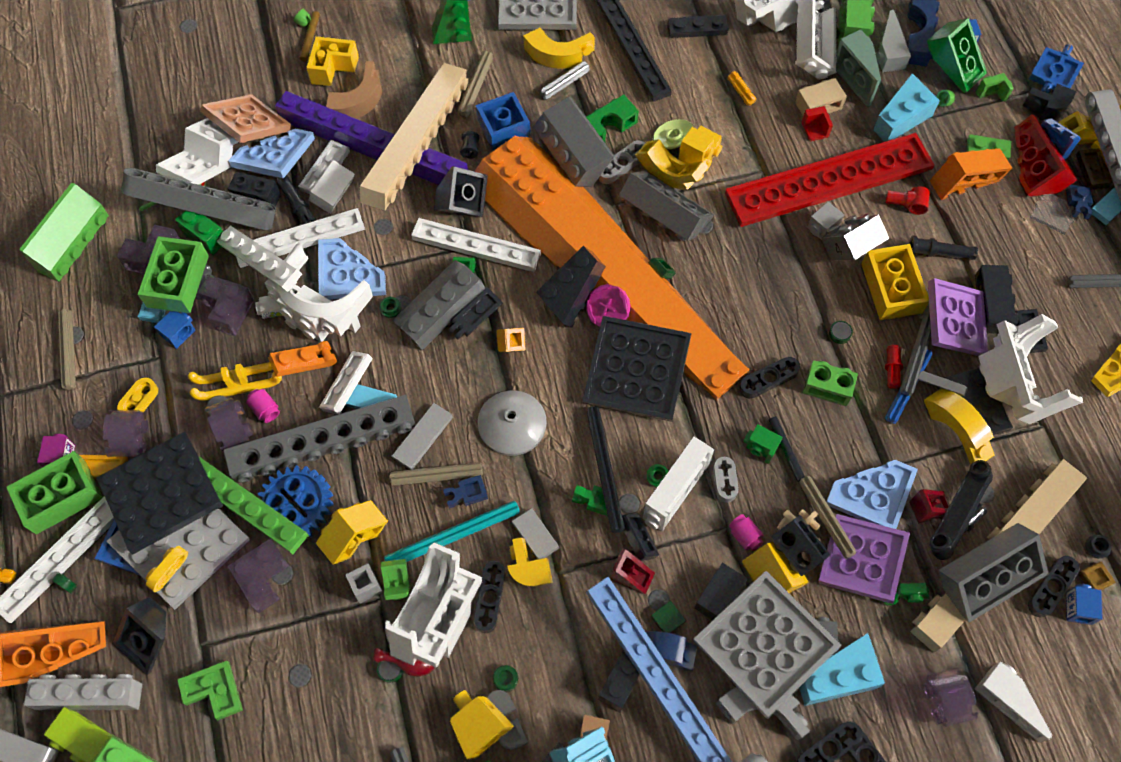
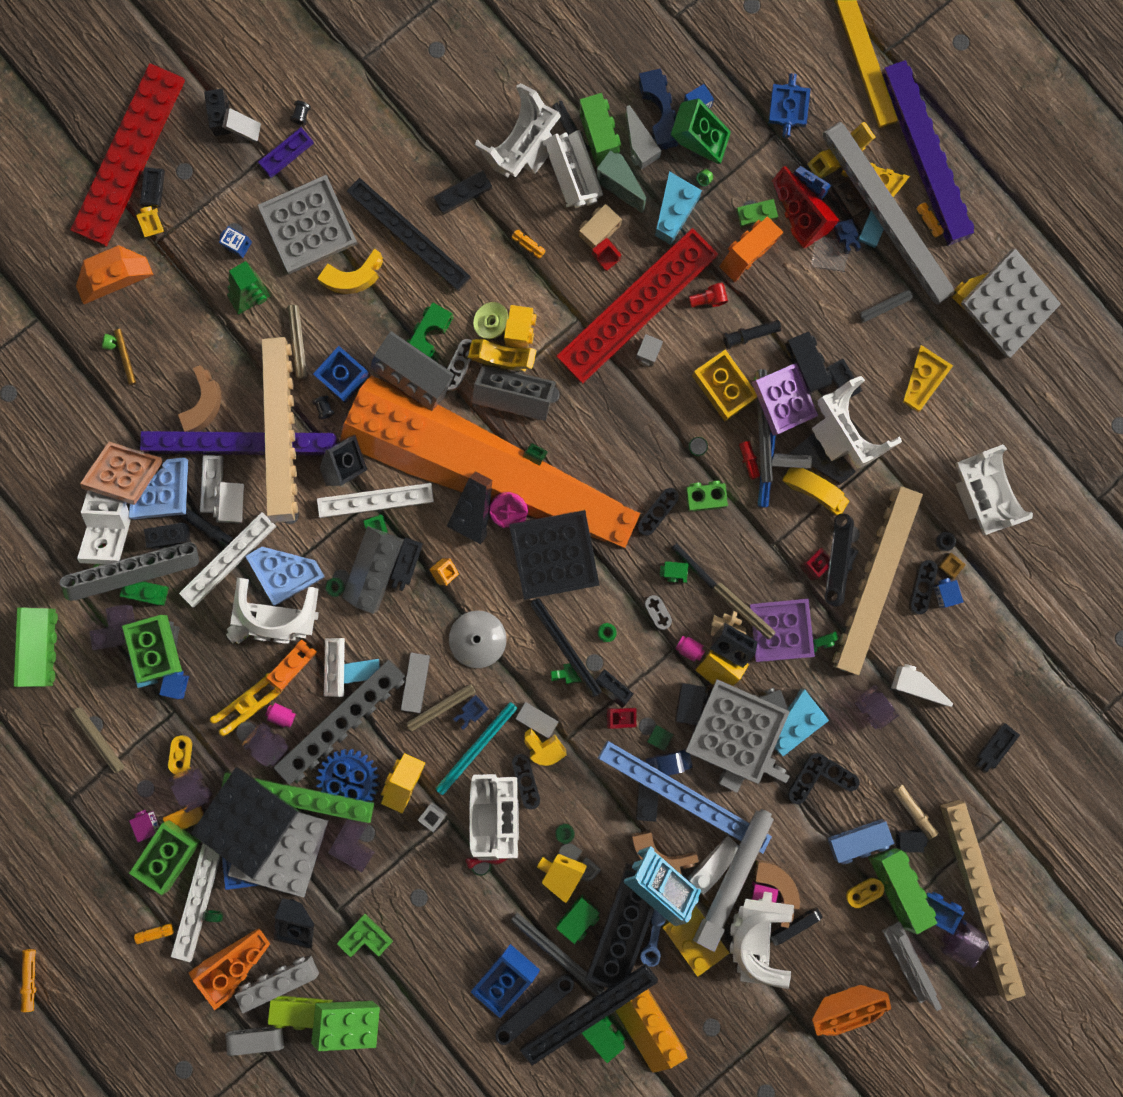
camera: 25 degrees left, 20 degrees up
(160, 575) = (286, 868): yellow plate -> none
(229, 303) = (206, 642): clear purple brick -> none
(259, 258) = (212, 603): white plate -> none
(331, 55) = (156, 376): yellow brick -> none
(395, 579) = (453, 803): bright green bracket -> none
(564, 80) = (372, 303): axle -> none
(677, 484) = (625, 638): white door -> none
(854, 237) = (679, 361): brick -> none
(874, 494) = (772, 574): light blue plate -> none
(994, 571) = (877, 603): dark grey slope -> none
(995, 84) = (738, 147): bright green bracket -> none
(1050, 105) = (798, 145): black brick -> none

